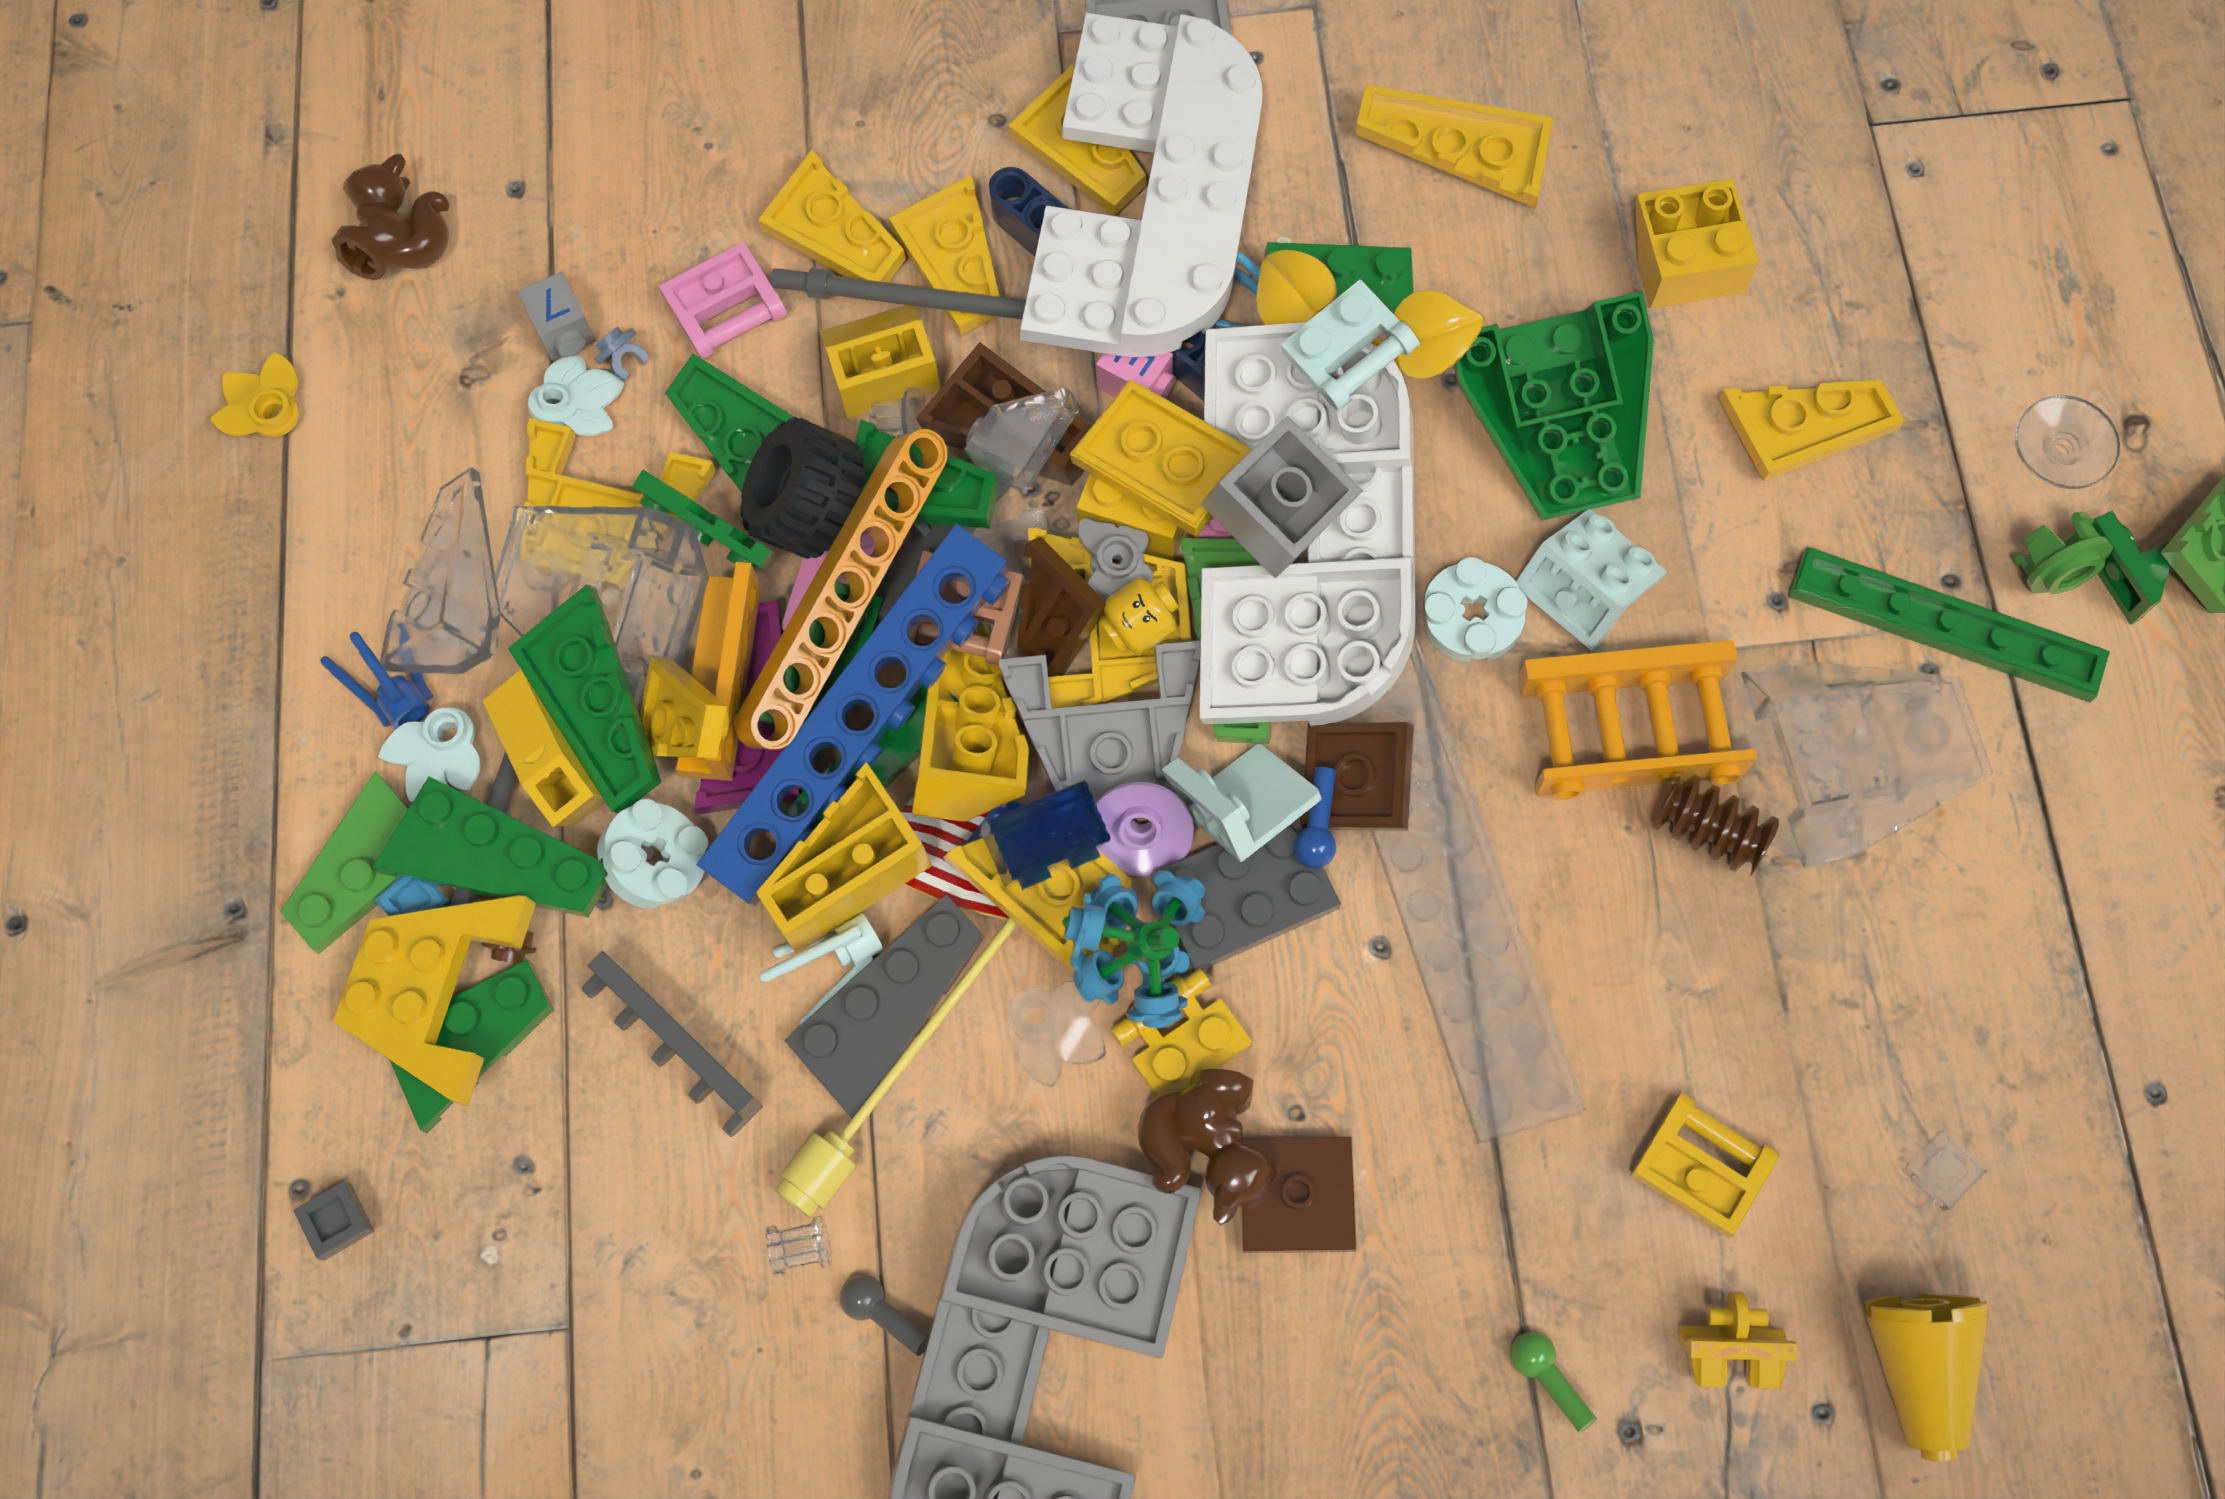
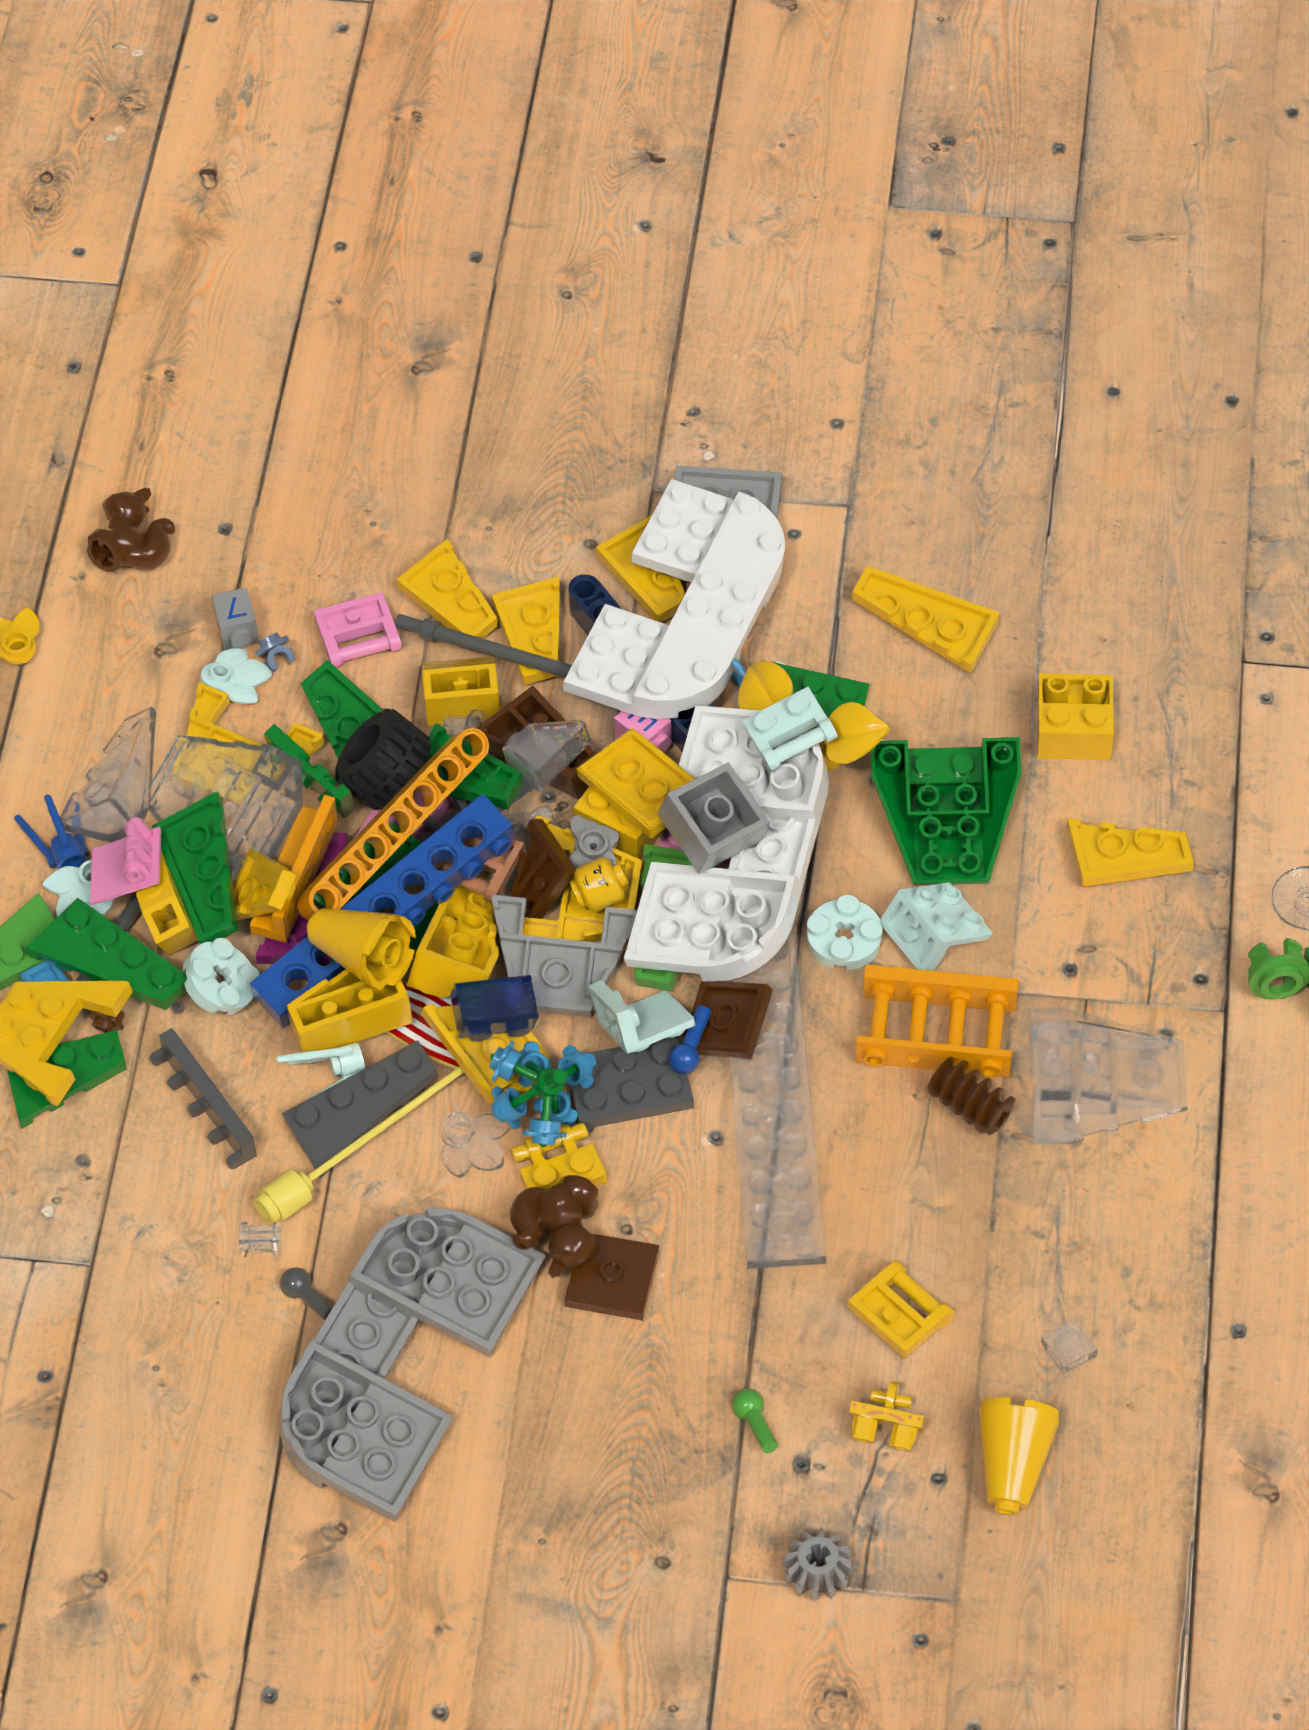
camera: 10 degrees right, 15 degrees down
(485, 714) = (126, 863): none -> bright pink hinge
(844, 785) = (364, 943): none -> yellow cone
(1148, 846) = (554, 1034): lavender dish -> none
(1949, 624) = (1187, 1005): green tile -> none

